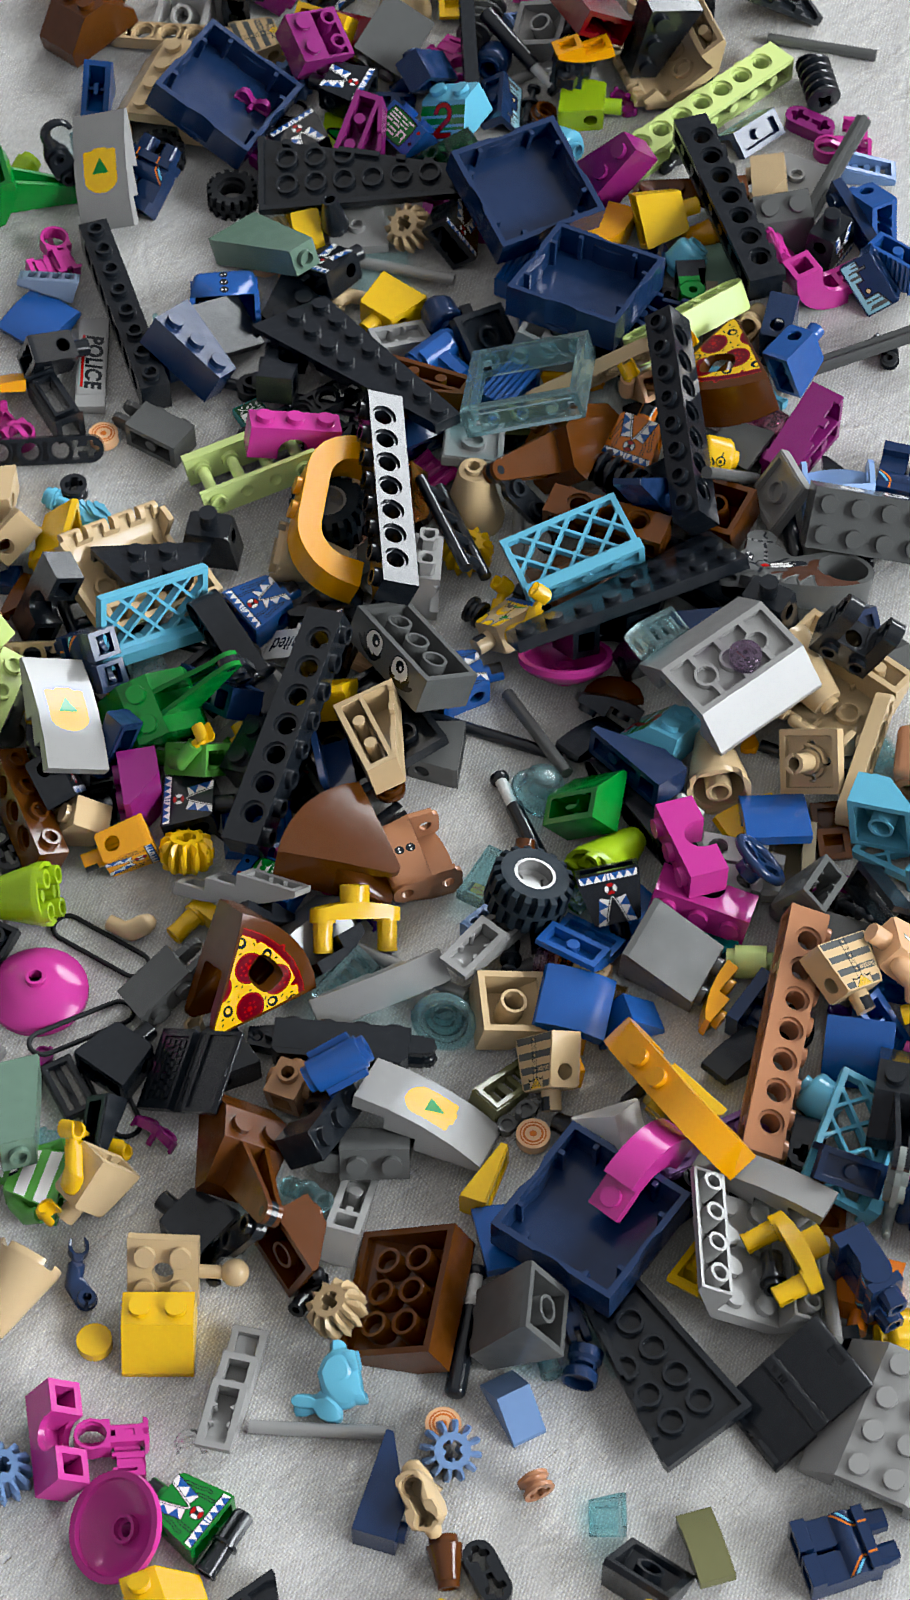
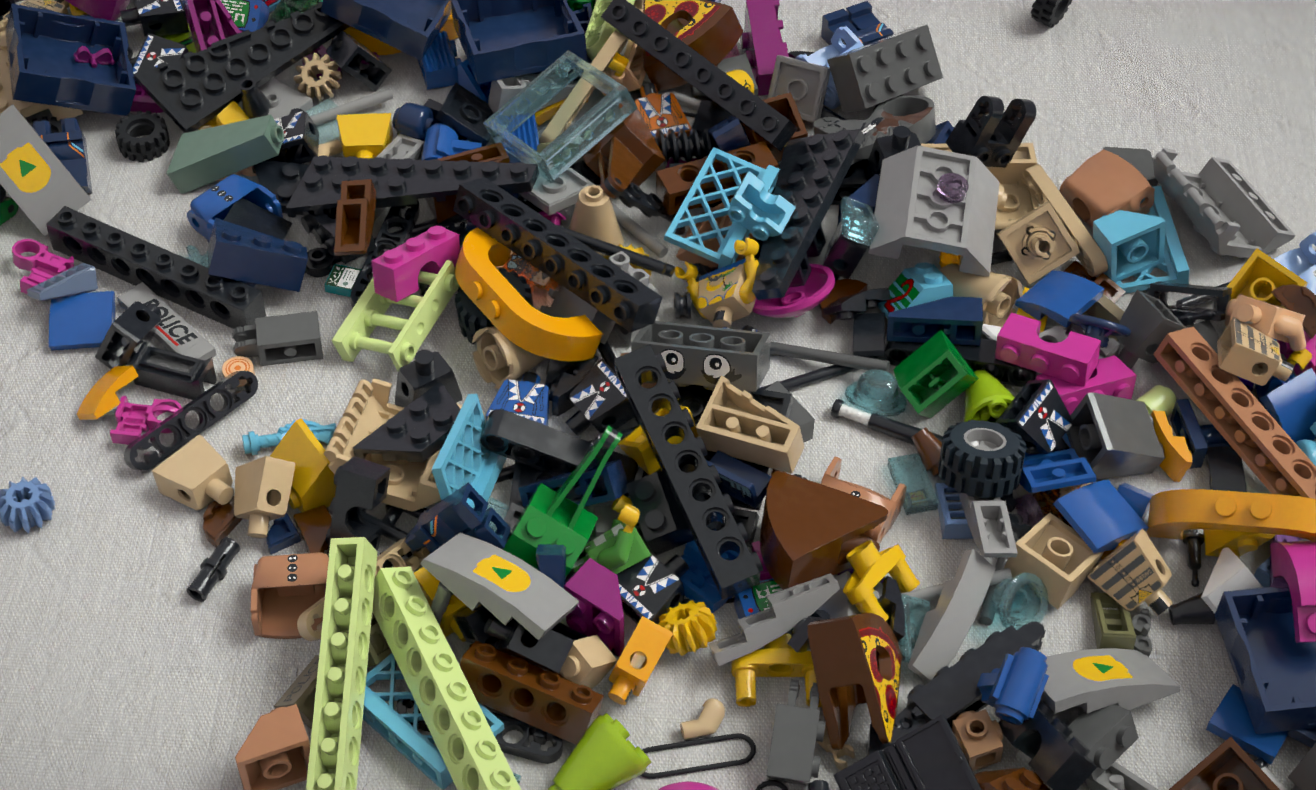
camera: 45 degrees left, 5 degrees down
(74, 480) = (259, 416): black bush -> none
(278, 366) = (355, 217): none -> reddish brown slope
(281, 644) = (585, 413): white sticker -> none
(486, 1182) = (1192, 701): yellow slope -> none
(533, 1136) = (1169, 638): light nougat tile -> none
(581, 566) = (759, 210): none -> medium azure cylinder
(730, 475) = (764, 92): dark grey bar -> none

